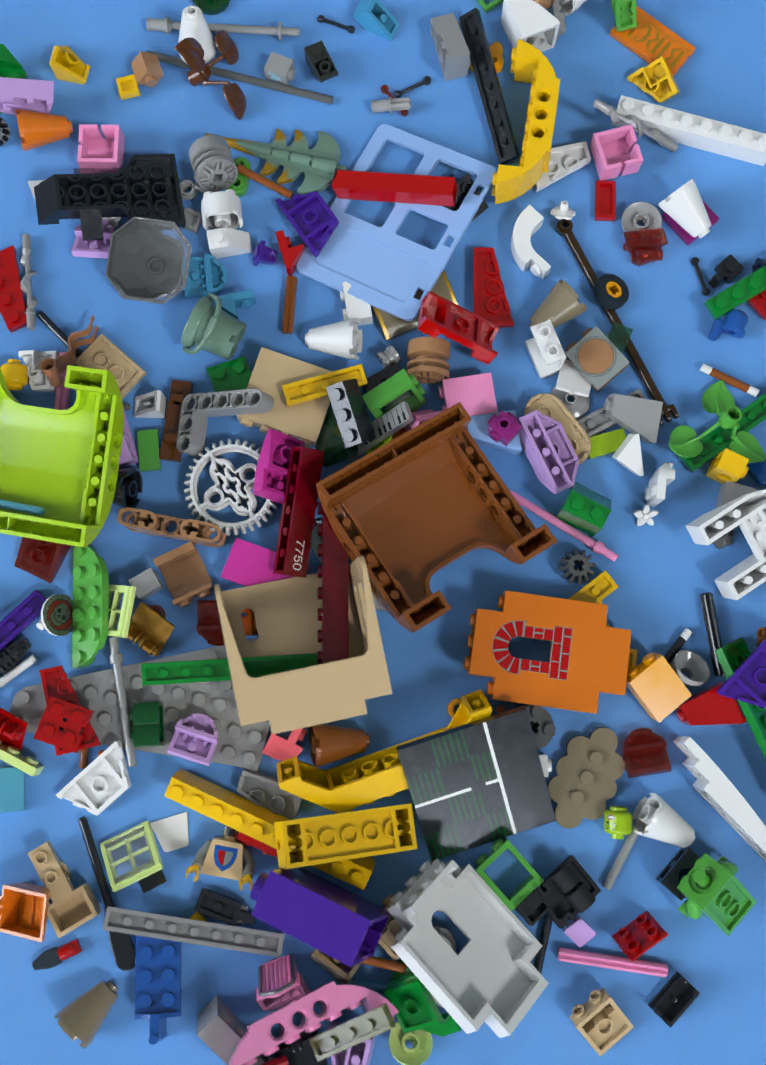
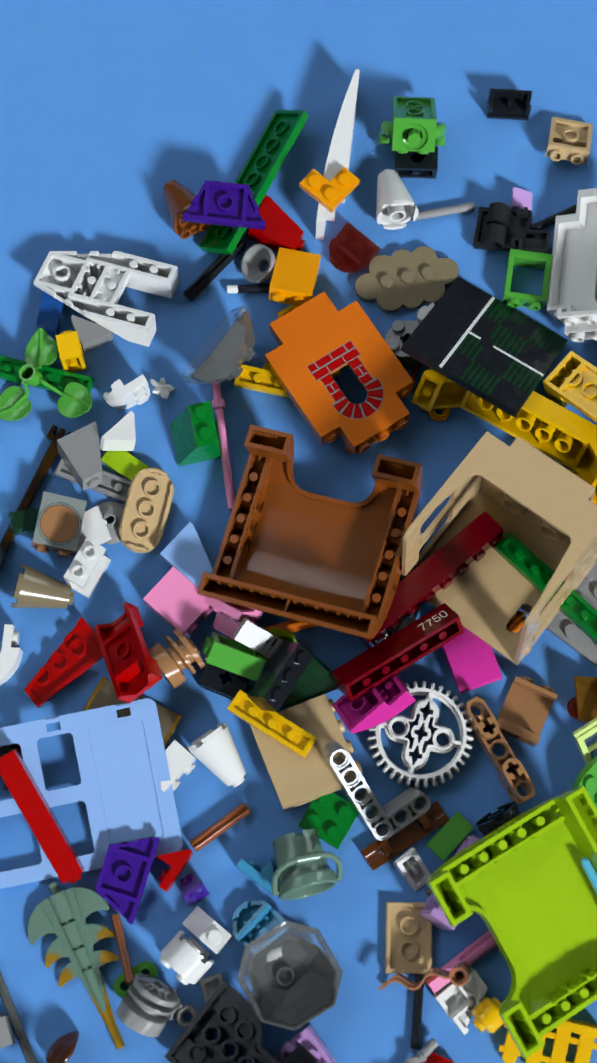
camera: 135 degrees left, 5 degrees down
(146, 584) = (560, 735): light grey brick -> none
(209, 622) = (543, 655): clear red slope -> none
(388, 356) = (197, 698): light grey wheel -> none
(503, 427) = (184, 538): magenta brick -> none
(548, 451) = (174, 497): lavender wedge -> none
(569, 564) = (255, 411): dark grey gear -> none
(612, 962) = (521, 163): bright pink axle -> none
(617, 822) = (420, 231): lime head -> none
(635, 575) = (223, 350): none -> dark grey rock
(639, 936) = (488, 156): red hinge -> none
(705, 769) = (329, 193): none -> light orange plate

